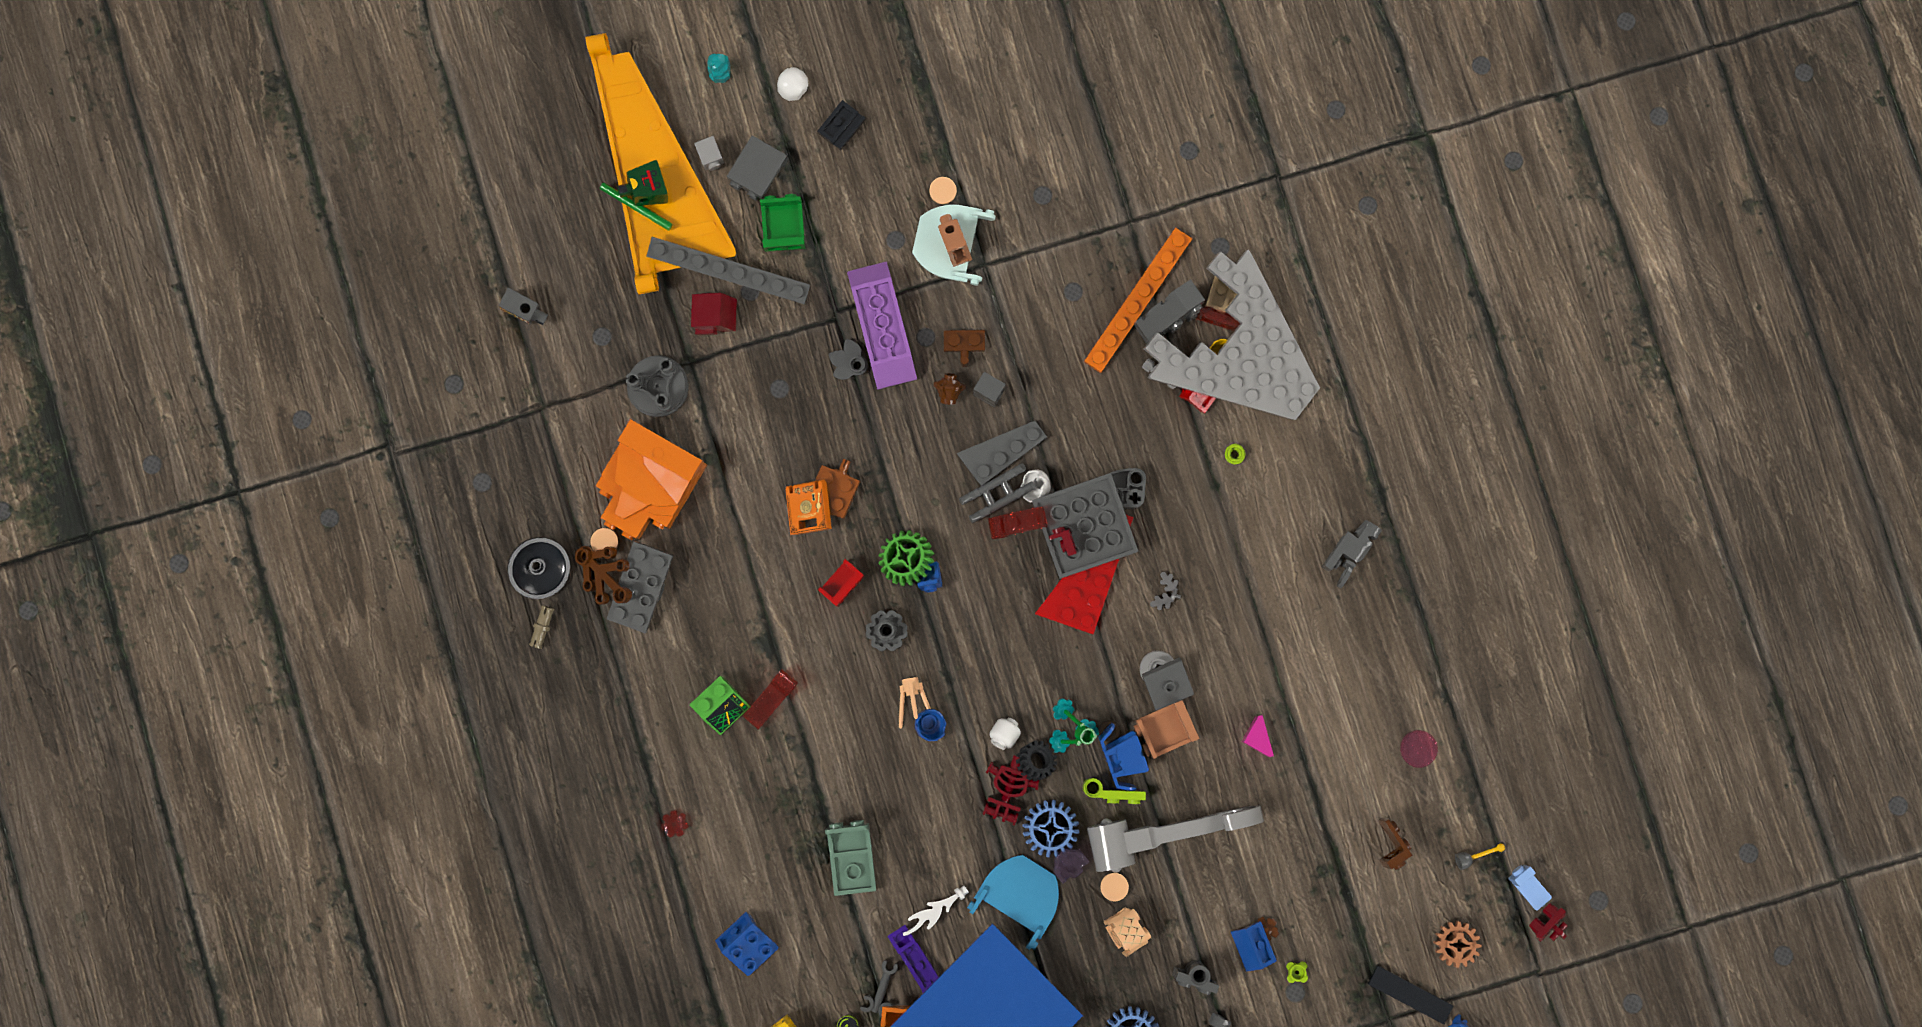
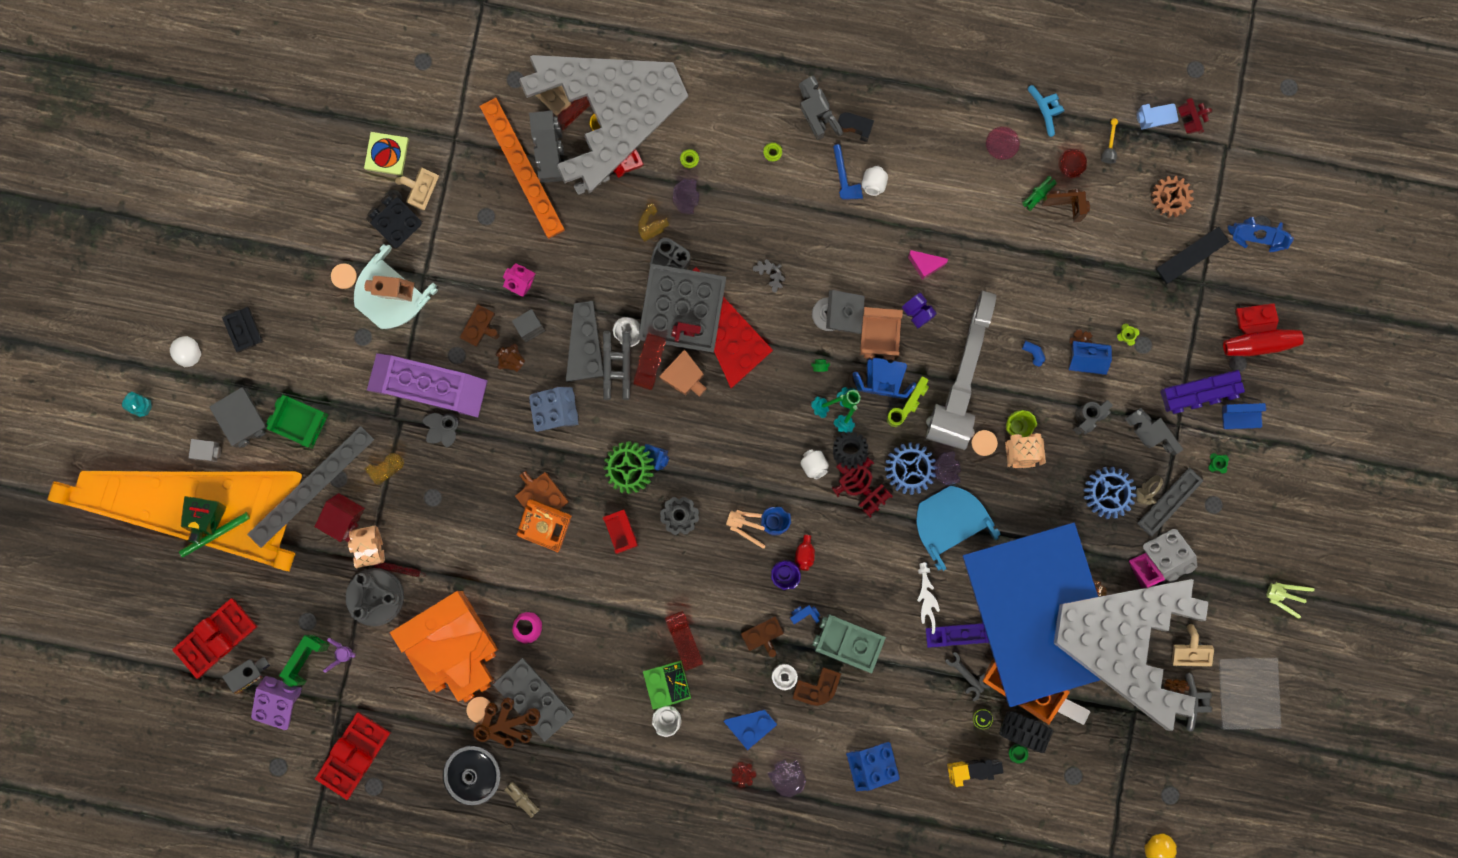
camera: 60 degrees left, 0 degrees up
(500, 447) = (352, 755): none -> red plate
(511, 348) = (274, 702): none -> medium lavender bracket
(541, 260) = (214, 638): none -> red plate
(566, 348) = (299, 657): none -> green panel
(588, 385) = (342, 654): none -> medium lavender plant
(686, 724) = (666, 721): none -> white hair
(692, 868) = (788, 778): none -> clear purple hair
(697, 394) = (411, 570): none -> dark red piece
(699, 353) = (366, 546): none -> light nougat brick
(705, 554) = (536, 631): none -> dark pink piece
(723, 807) = (751, 727): none -> blue wing
(786, 813) = (784, 676): none -> white wheel
(788, 333) = (390, 466): none -> clear yellow leg
(790, 857) = (822, 692): none -> reddish brown plate
(816, 771) = (762, 635): none -> reddish brown plate
(855, 796) = (799, 614): none -> blue bracket
(884, 762) = (785, 575): none -> dark purple hair
(914, 770) = (805, 554): none -> red plant
(923, 456) = (553, 408): none -> sand blue bracket
(1021, 207) = (393, 220): none -> black bracket
(1022, 562) = (684, 375): none -> nougat torso
(1028, 355) = (518, 279): none -> dark pink brick
(1065, 216) = (420, 188): none -> tan plate
(1081, 165) = (386, 153): none -> tile
(1103, 688) = (820, 365): none -> green plate
(1148, 457) = (653, 229): none -> clear yellow plant
(1151, 913) = (1021, 423): none -> lime hair
(1196, 470) = (685, 196): none -> clear purple hair
(1208, 754) = (919, 310): none -> dark purple wheel
(1230, 892) = (1036, 351): none -> blue arm
(1286, 623) = (846, 192): none -> blue piece
(1292, 530) = (772, 146): none -> lime plate
(1311, 644) = (874, 180): none -> white head
(1357, 596) = (856, 124): none -> black leg
(1388, 811) = (1039, 193): none -> green pin
(1435, 828) = (1072, 163): none -> clear red hair
(1472, 778) = (1046, 112): none -> dark azure piece

